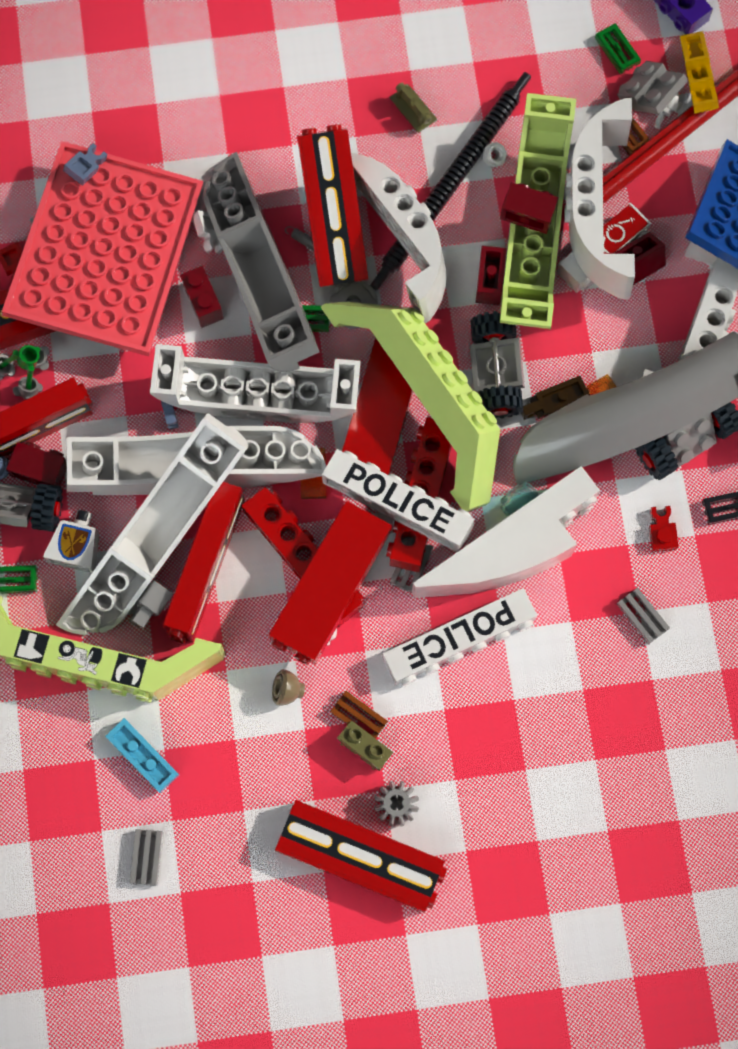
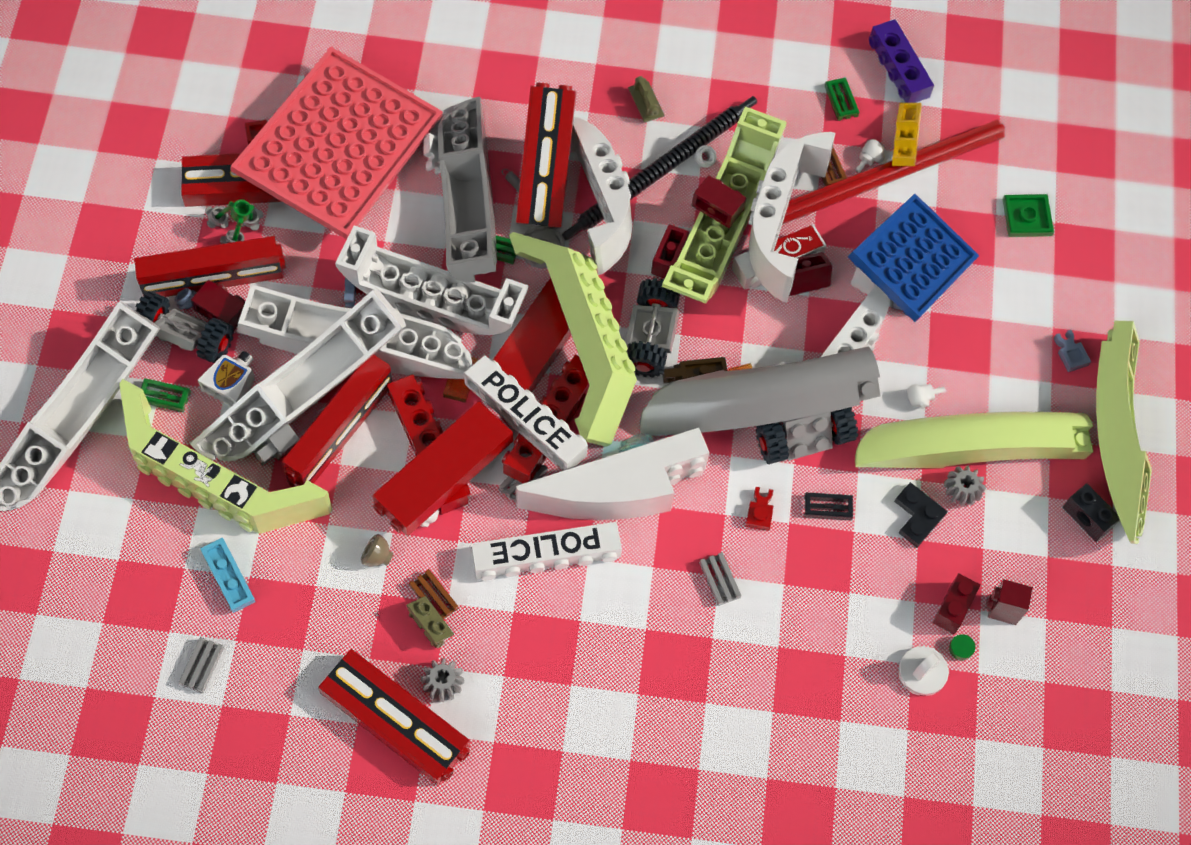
camera: 10 degrees right, 10 degrees down
(84, 166) = (342, 70): sand blue plate -> none
(202, 296) = (410, 205): dark red brick -> none
(652, 87) = (860, 135): light grey plate -> none

